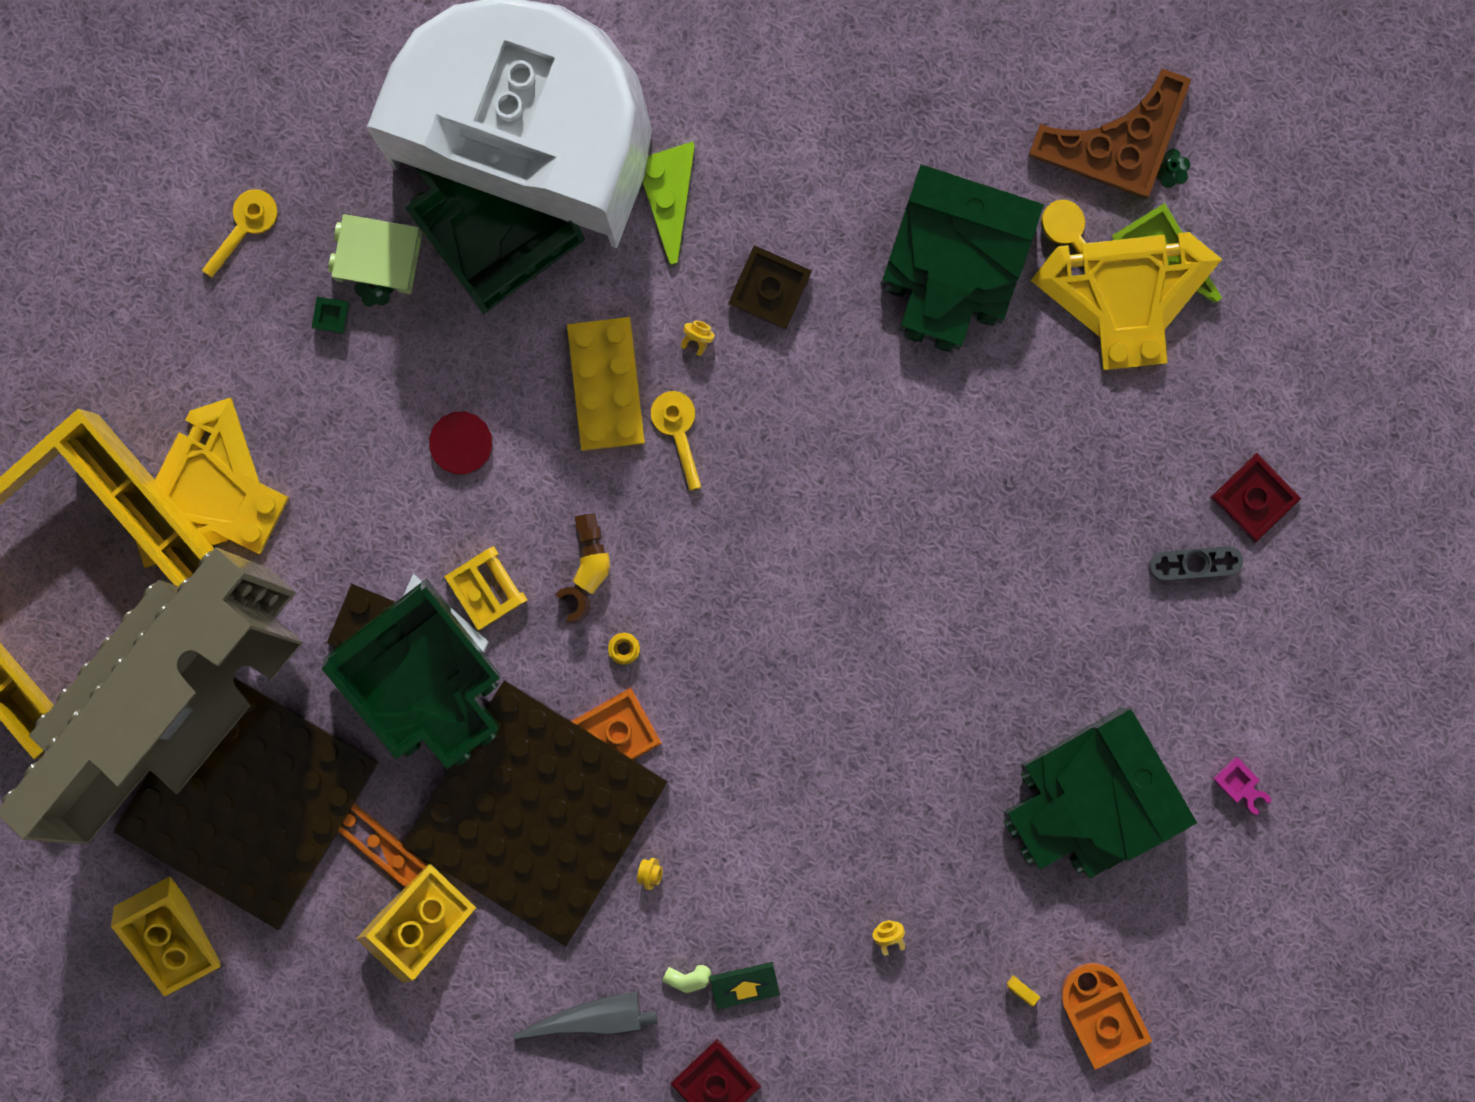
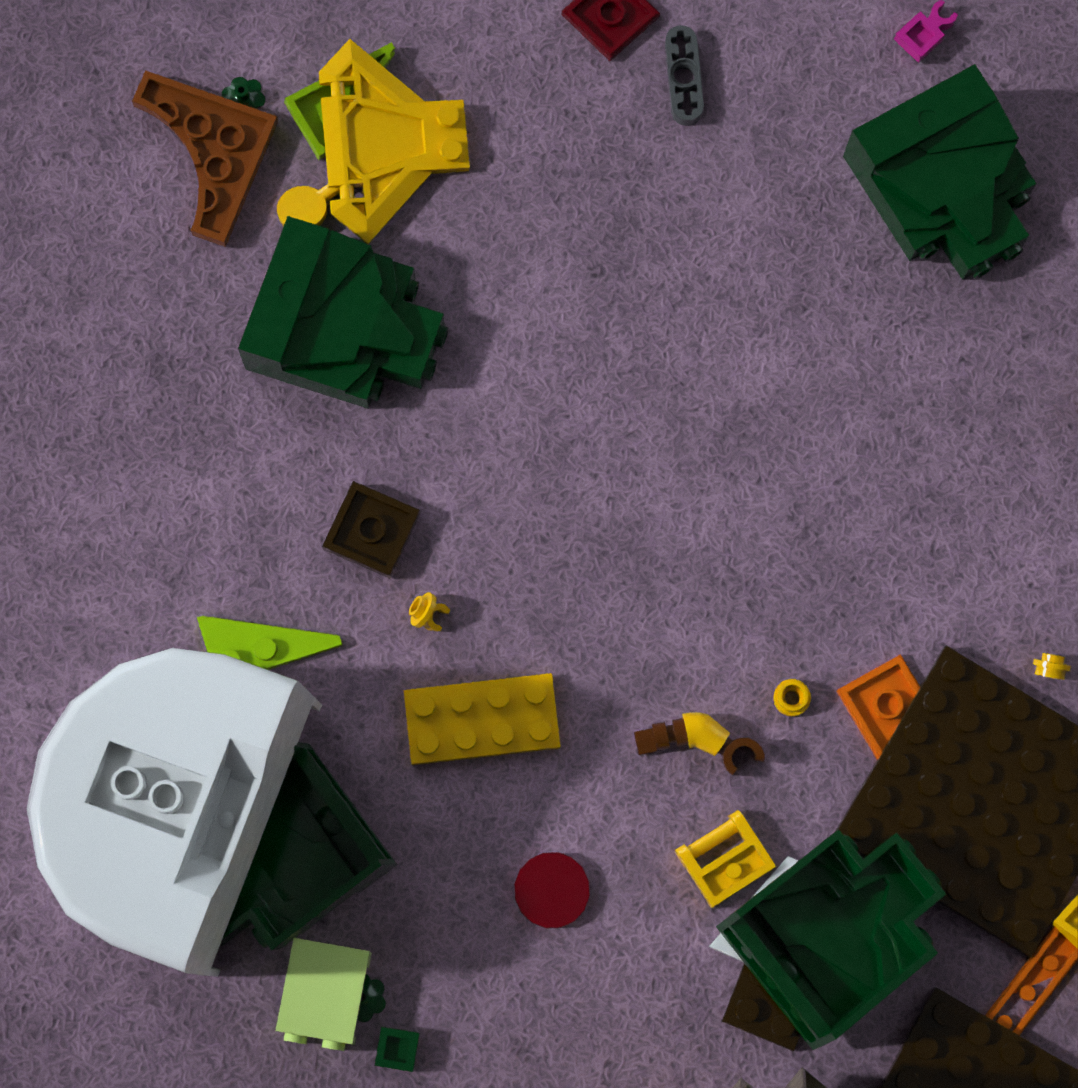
camera: 90 degrees left, 10 degrees down
(674, 415) = (519, 641): yellow piece -> none

